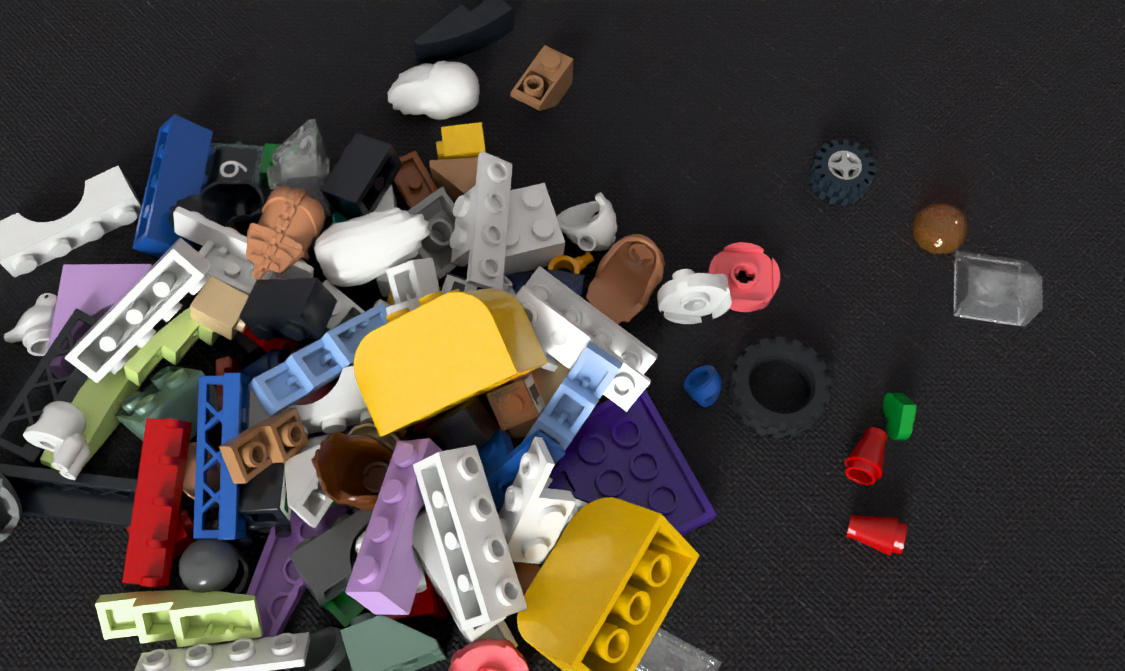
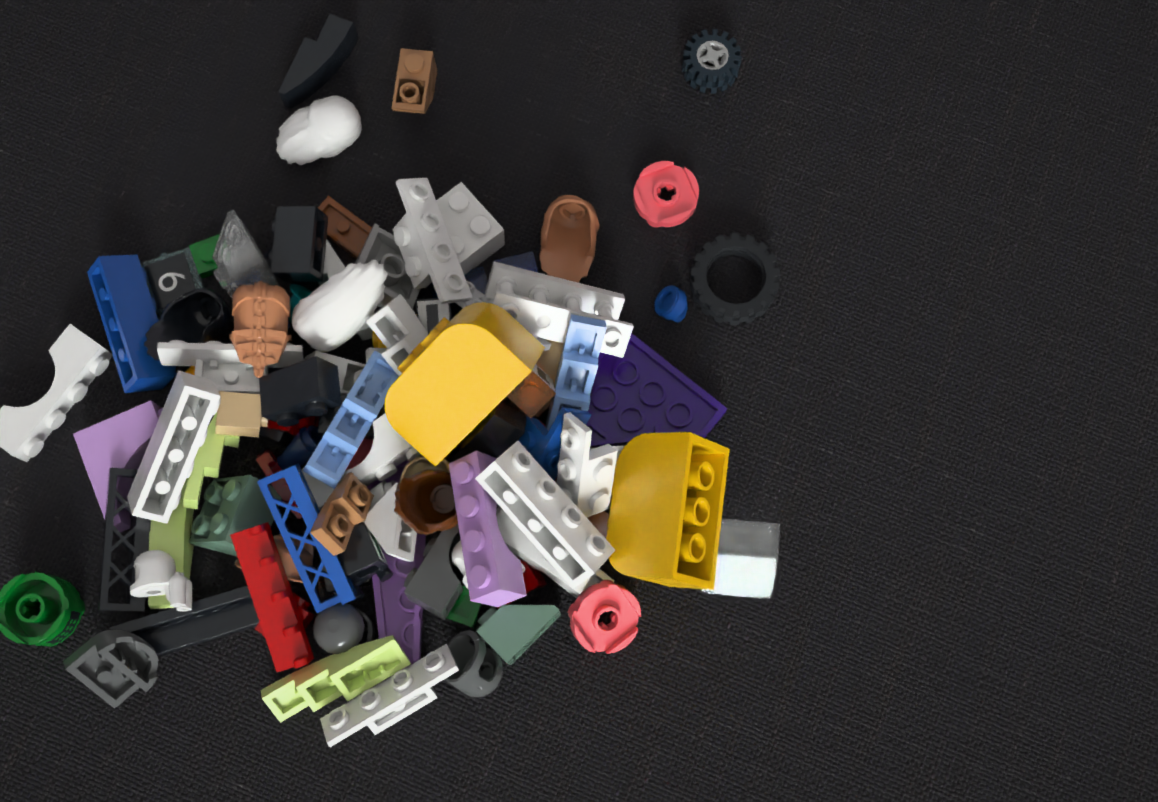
camera: 20 degrees left, 10 degrees up
(35, 326) = (77, 496): white animal -> none
(454, 175) = (381, 205): medium nougat slope -> none
(461, 141) = (370, 176): yellow brick -> none
(574, 264) = (517, 243): light orange piece -> none
(590, 230) = (514, 206): white helmet -> none
(693, 296) = (632, 230): white plate -> none
(867, 458) = (828, 310): red cone -> none
(878, 532) = (863, 366): red cone -> none
(900, 415) = (841, 261): green tile -> none
(940, 228) = (814, 79): clear orange hair -> none
(996, 289) = (879, 115): clear slope -> none

